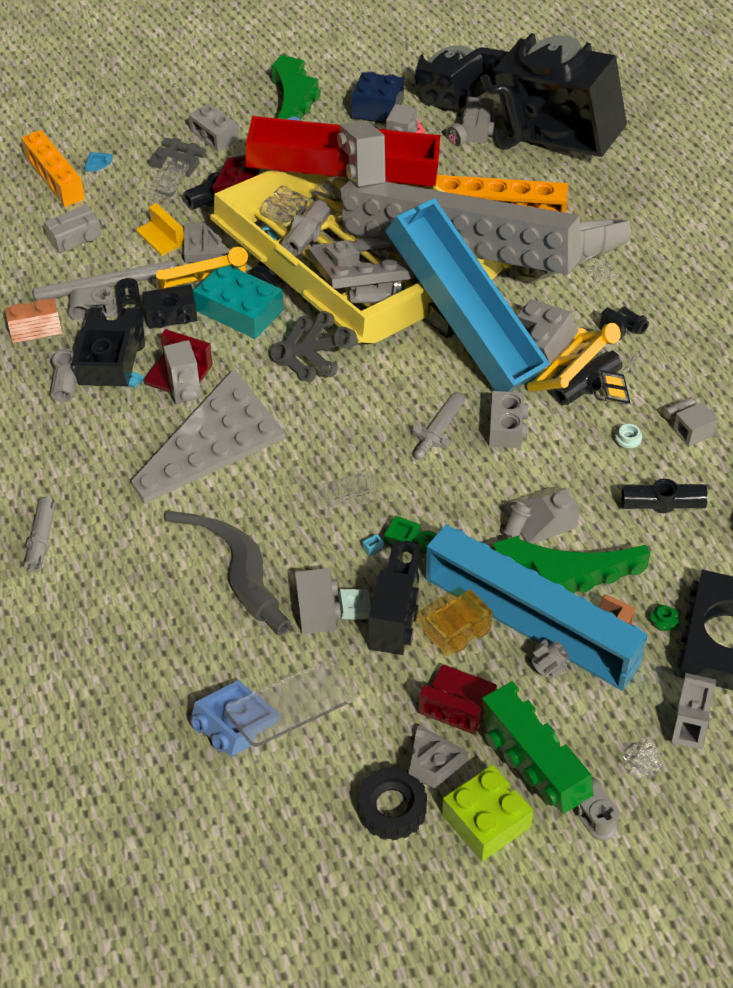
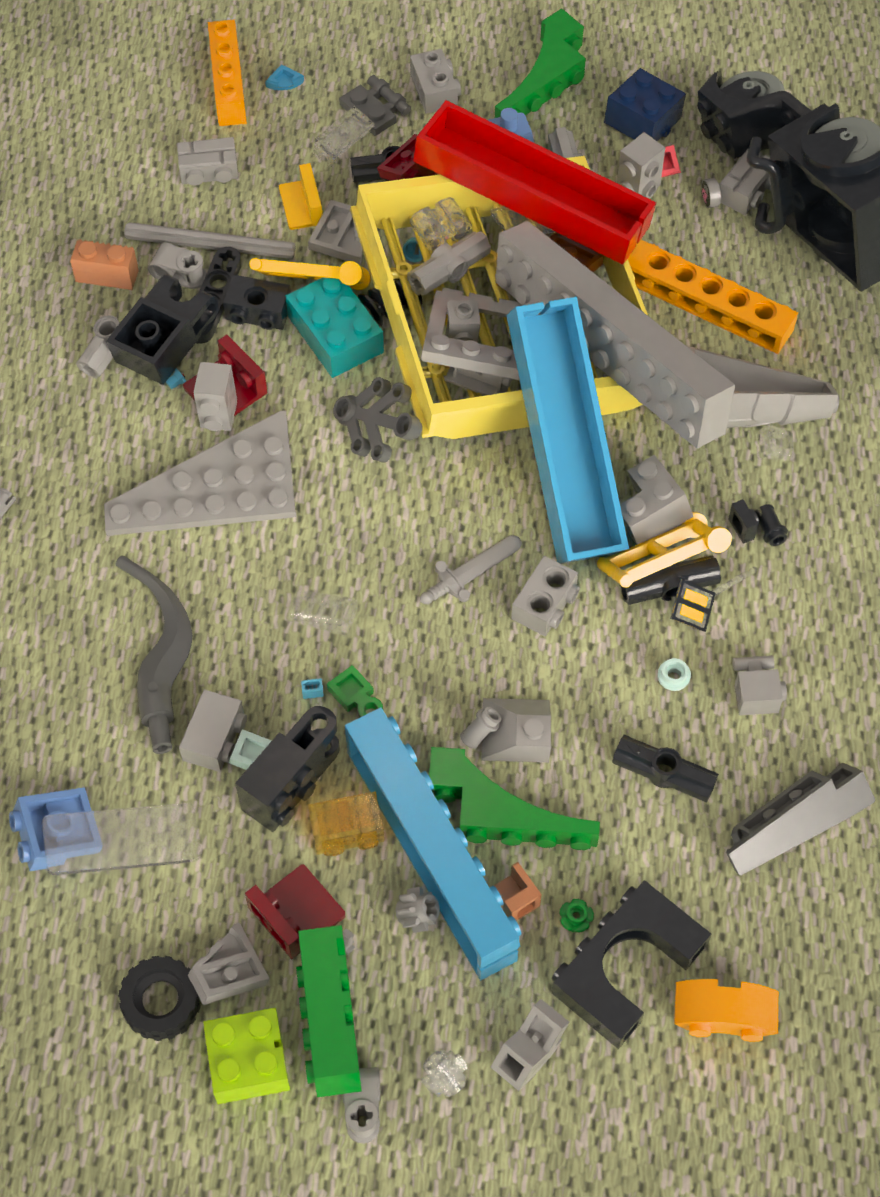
camera: 25 degrees right, 10 degrees up
(365, 151) = (542, 197): light grey brick -> none

